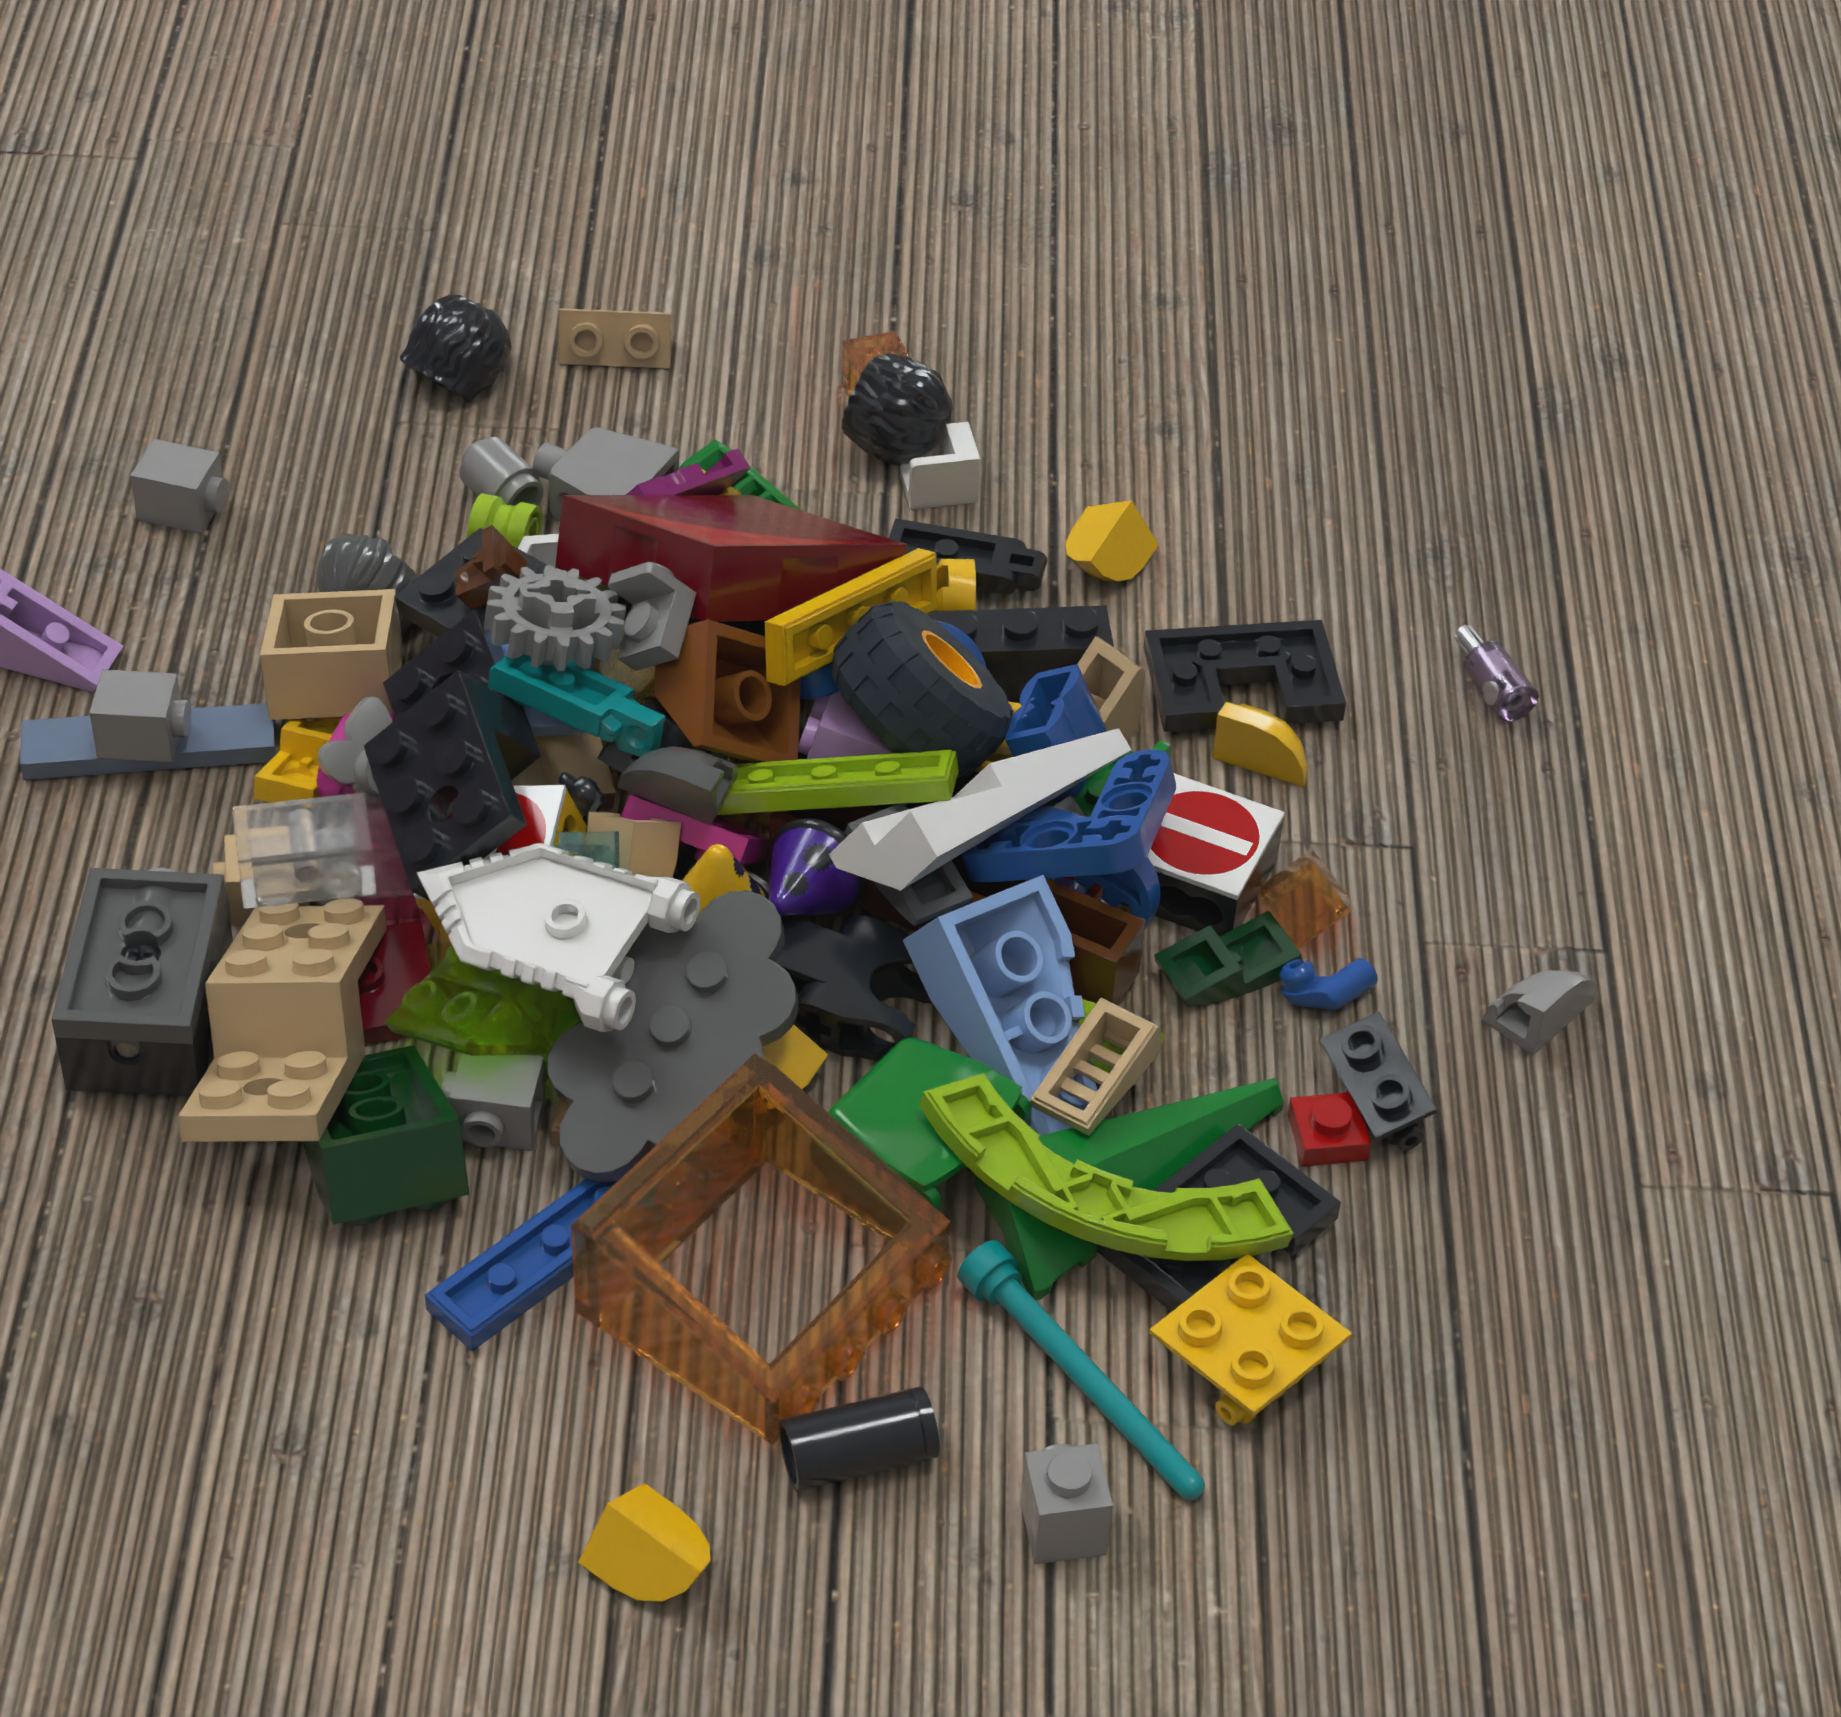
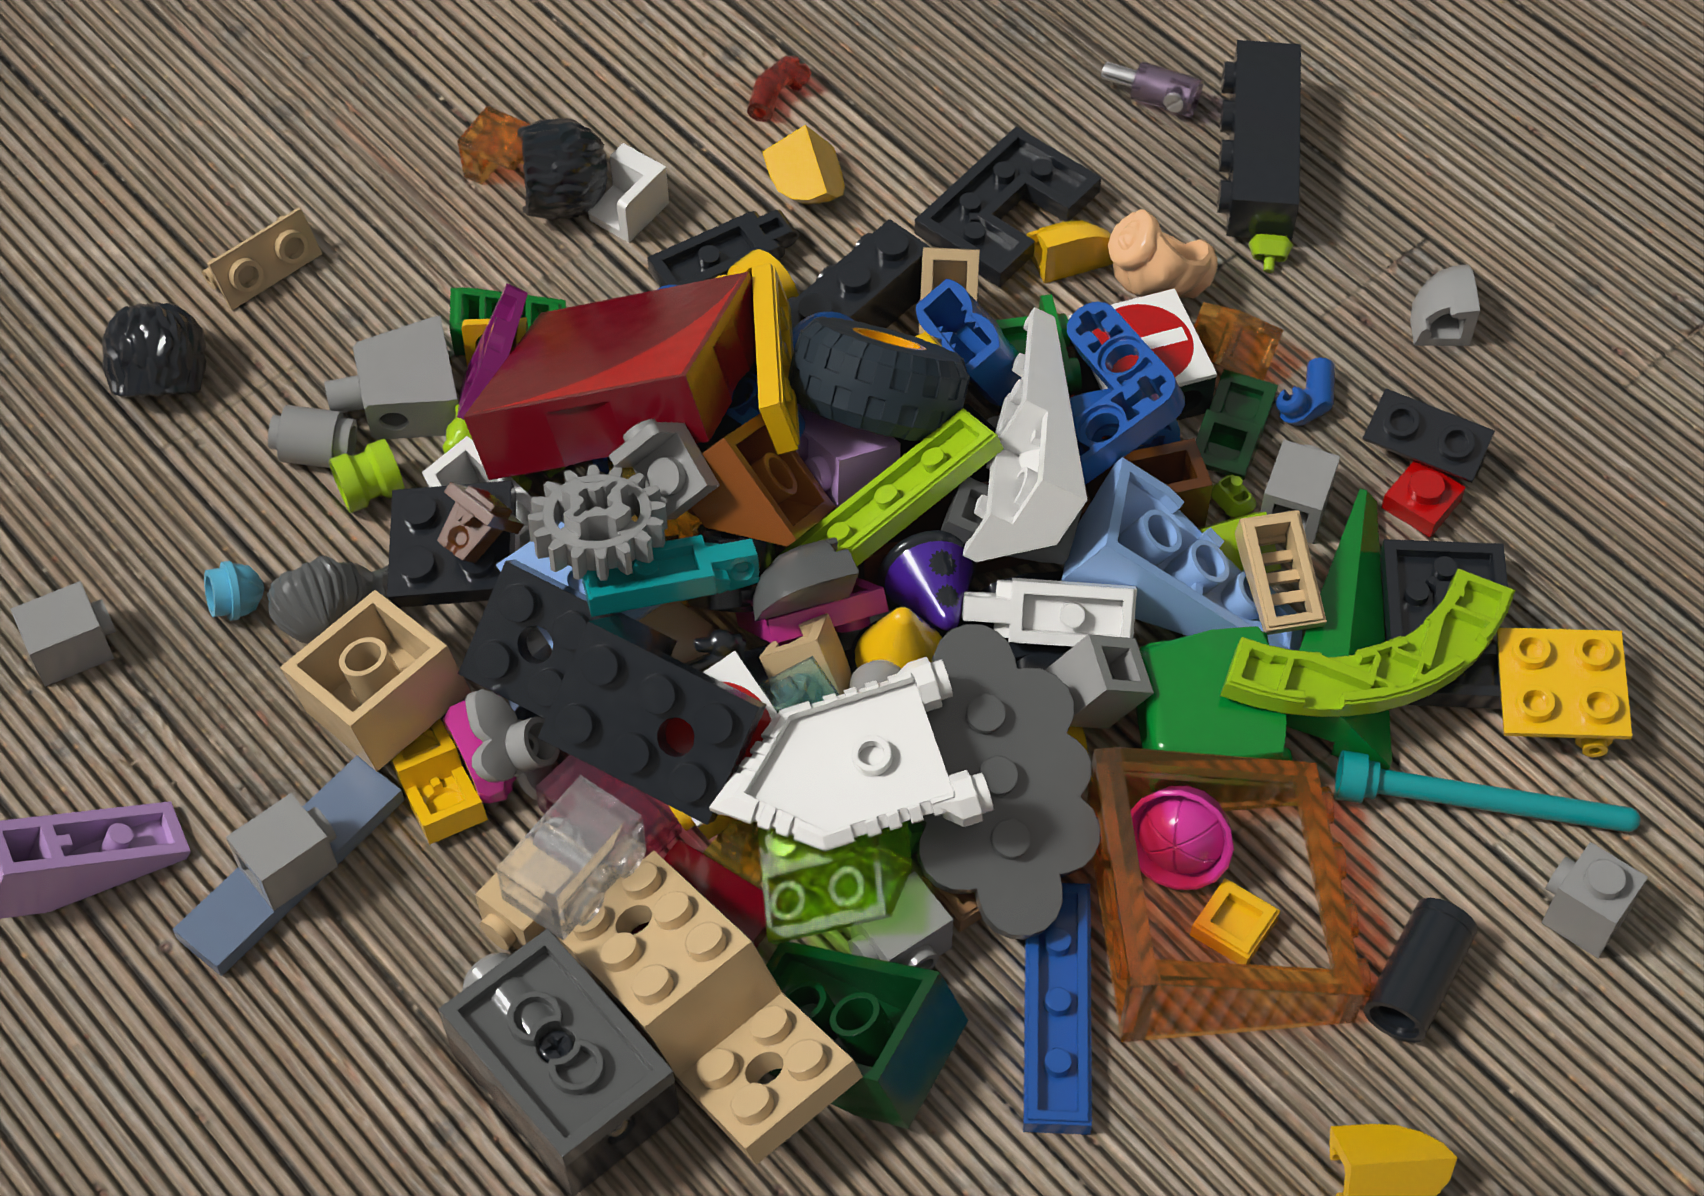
camera: 40 degrees left, 10 degrees up
(315, 532) = (232, 590): none -> medium azure plate
(764, 1299) = (1235, 922): none -> yellow tile
(782, 1193) = (1182, 838): none -> dark pink hat
(844, 1031) = (1103, 679): none -> light grey brick
(871, 960) = (1054, 610): none -> white hinge
(1161, 465) = (769, 83): none -> clear red arm
(1165, 1010) = (1233, 496): none -> lime rock
(1214, 1039) = (1301, 482): none -> light grey brick
(1309, 788) = (1155, 262): none -> light nougat hair
(1437, 858) = (1270, 249): none -> lime rock
(1526, 766) = (1262, 140): none -> black brick

